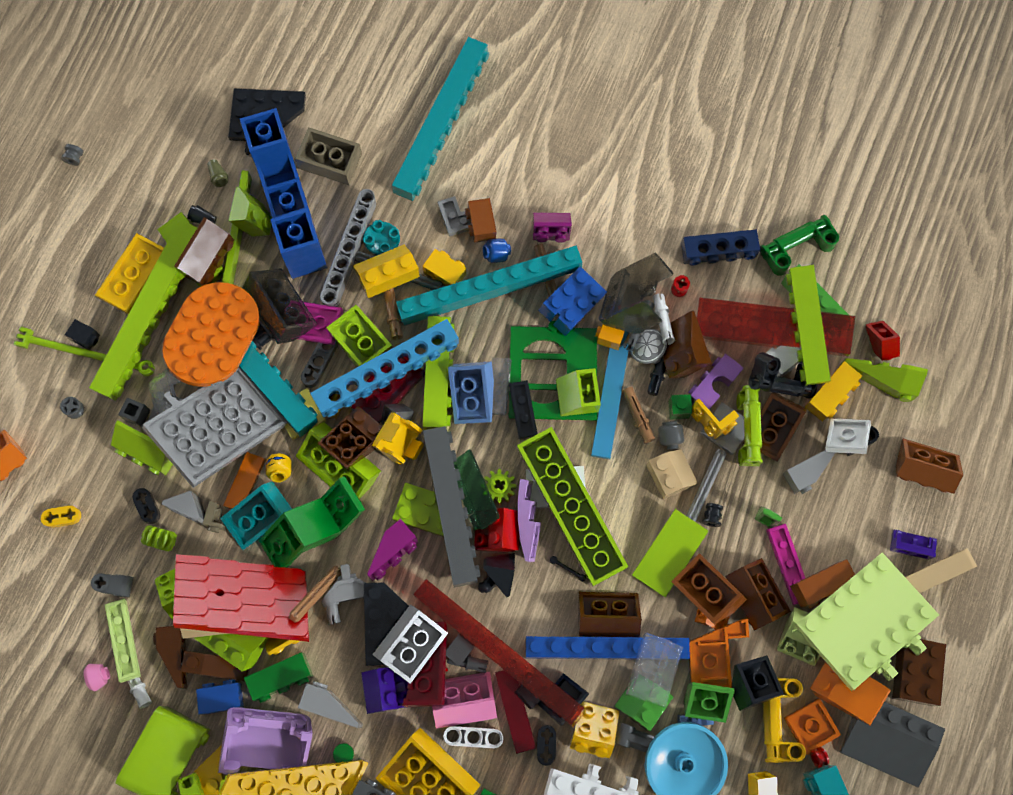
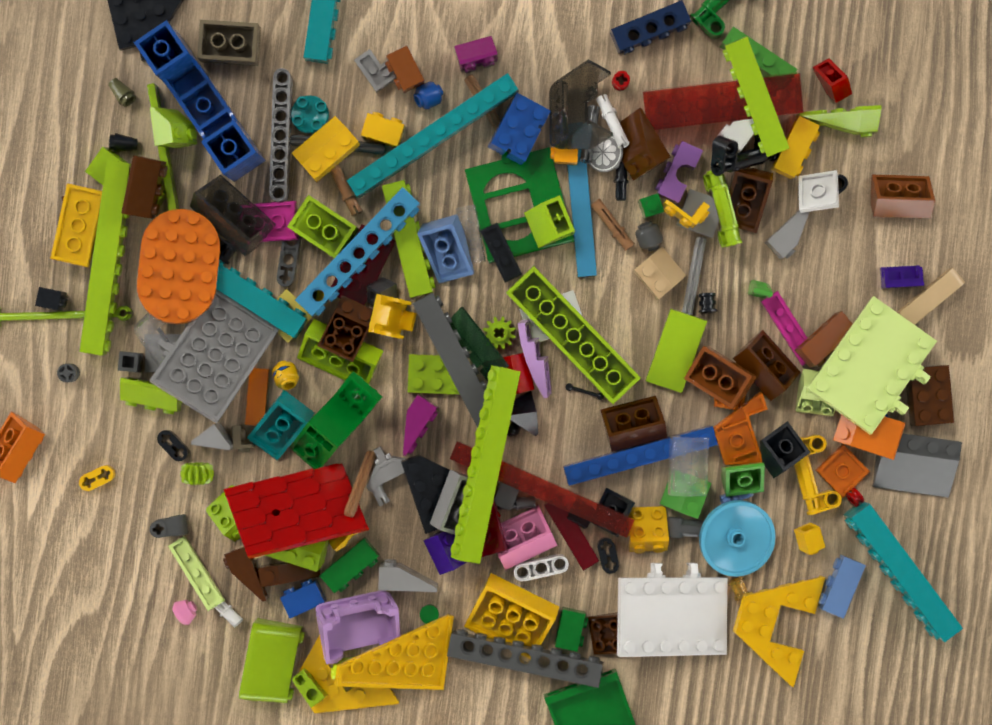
camera: 15 degrees left, 15 degrees up
(446, 608) = (485, 464): none -> lime brick

